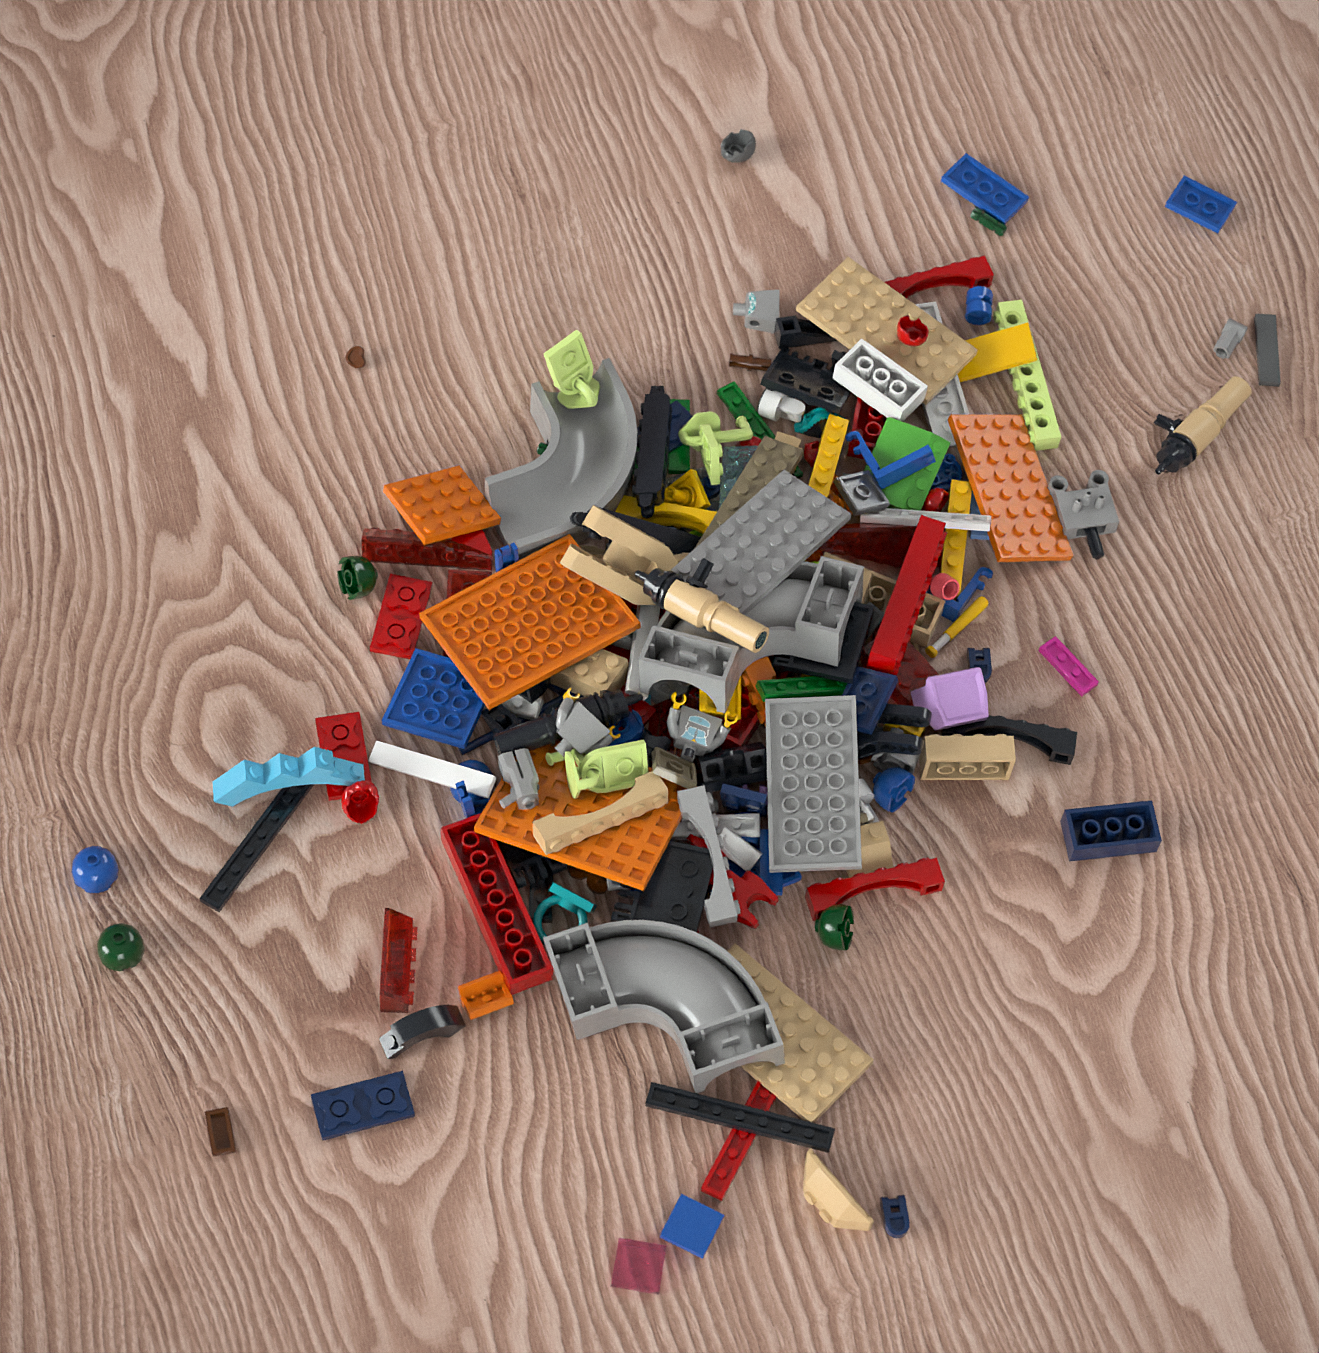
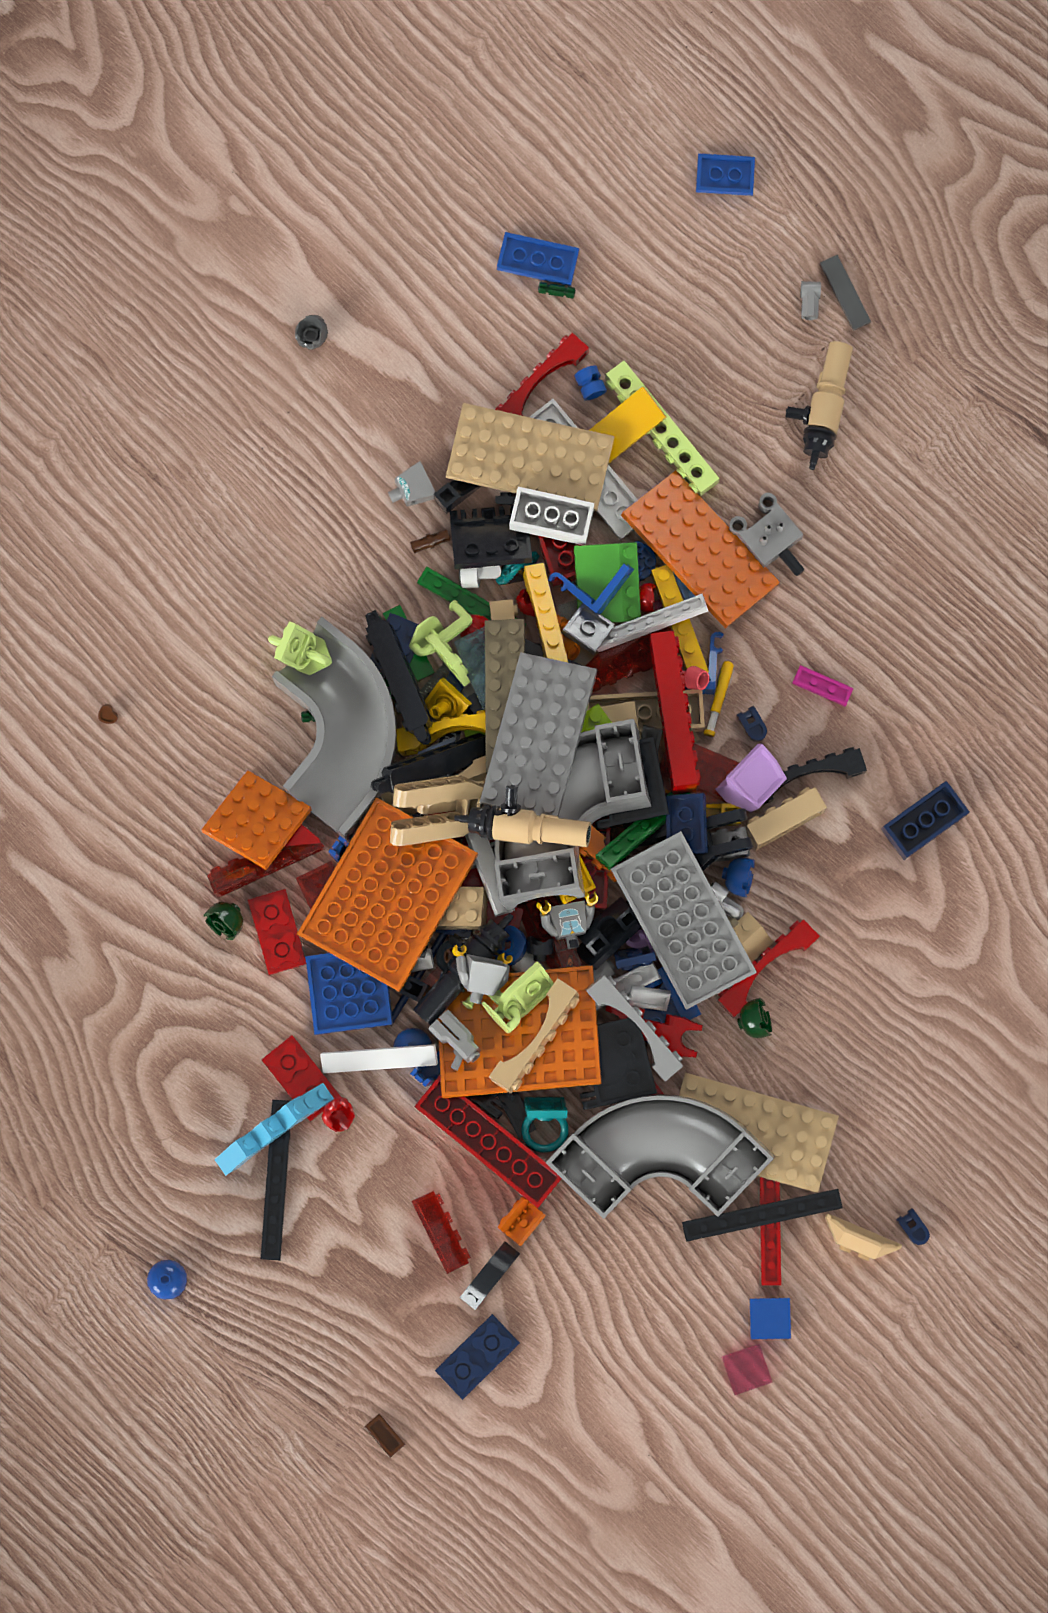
camera: 20 degrees left, 20 degrees up
(120, 947) = (224, 1331): dark green cylinder -> none
(674, 768) = (570, 965): dark tan tile -> none
(912, 331) = (555, 454): red hair -> none

